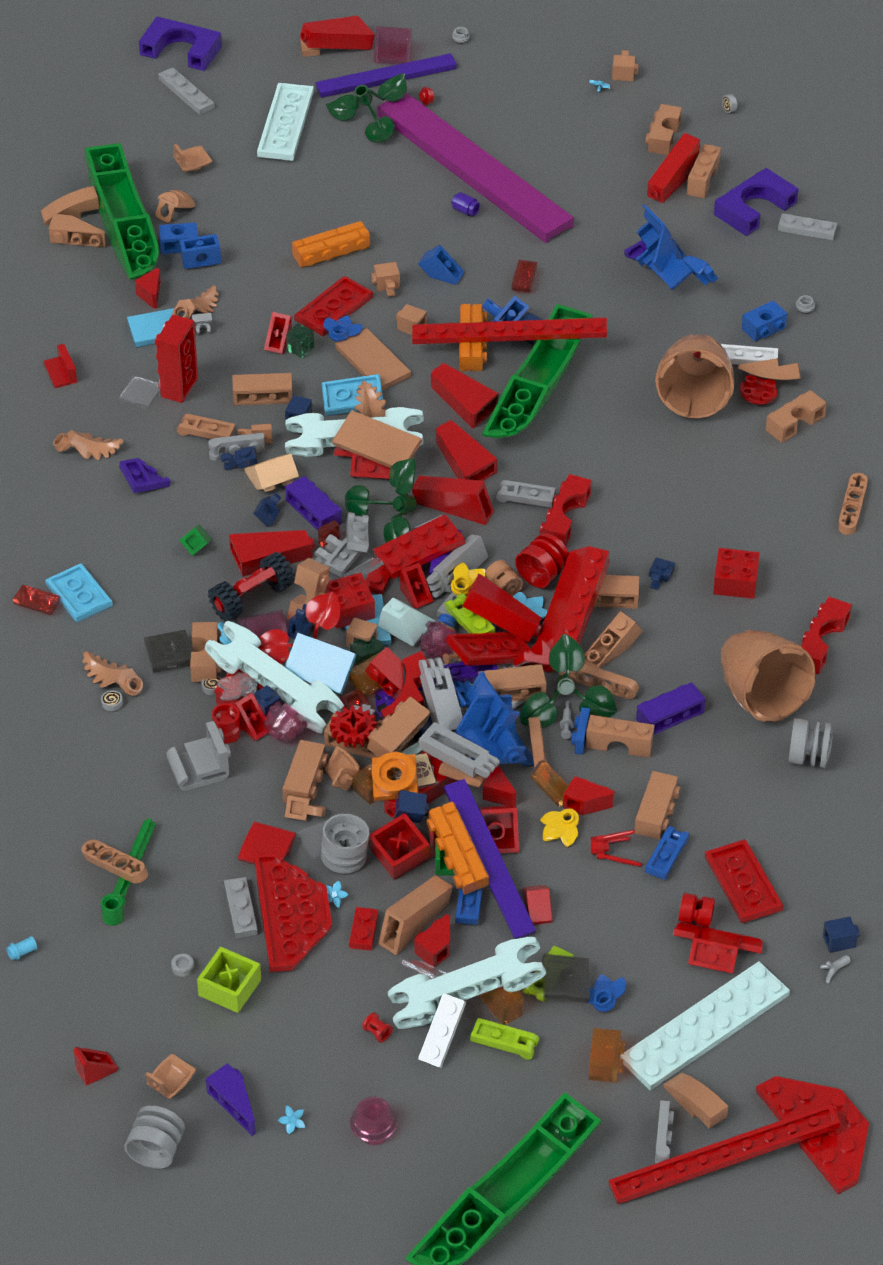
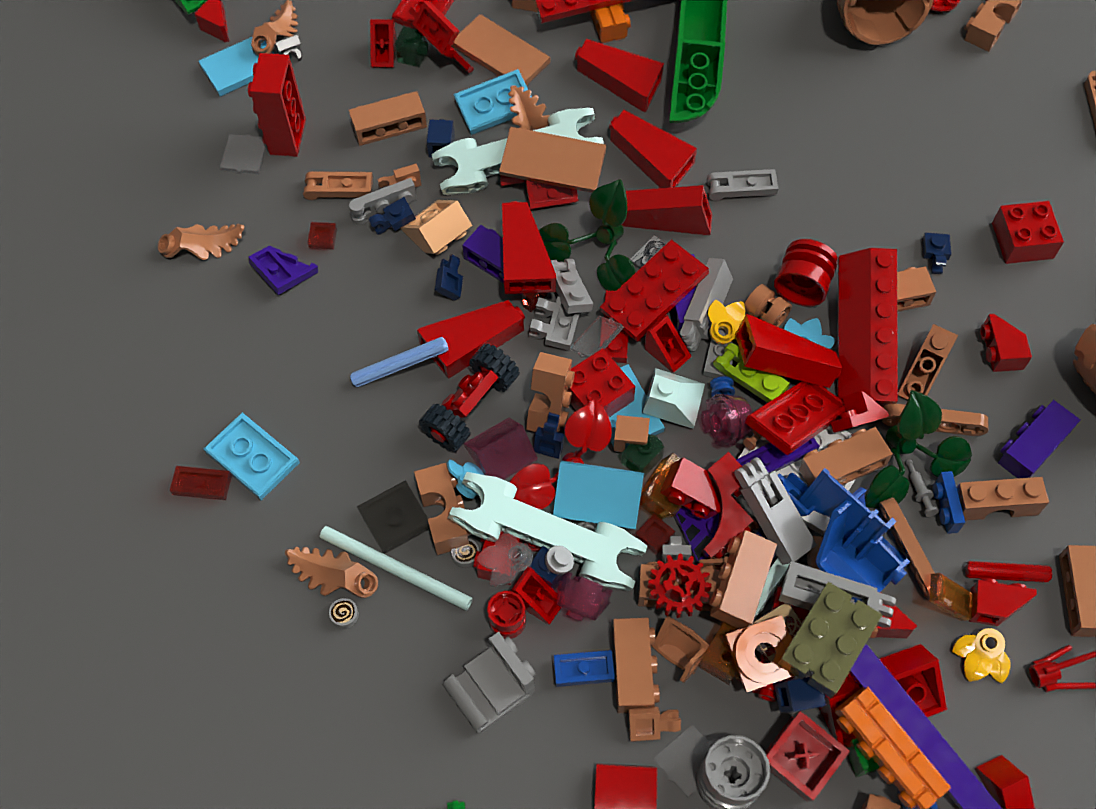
camera: 15 degrees left, 15 degrees up
(61, 368) = (139, 145): red panel -> none
(158, 682) = (396, 568): none -> light aqua piece
(181, 460) = (322, 235): none -> clear red plate
(195, 539) = (375, 343): green panel -> none
(208, 553) = (399, 362): none -> light blue axle
(267, 768) = (584, 668): none -> blue plate
(273, 692) = (559, 560): none -> plate
(323, 333) = (438, 31): none -> red plate
(326, 499) = (524, 253): none -> red slope
(342, 328) = (459, 20): blue plate -> none
(437, 766) = (830, 639): none -> olive piece
(573, 494) = (798, 171): red arch -> none
(617, 785) = (1008, 571): none -> red axle
(678, 645) = (1005, 345): none -> red slope

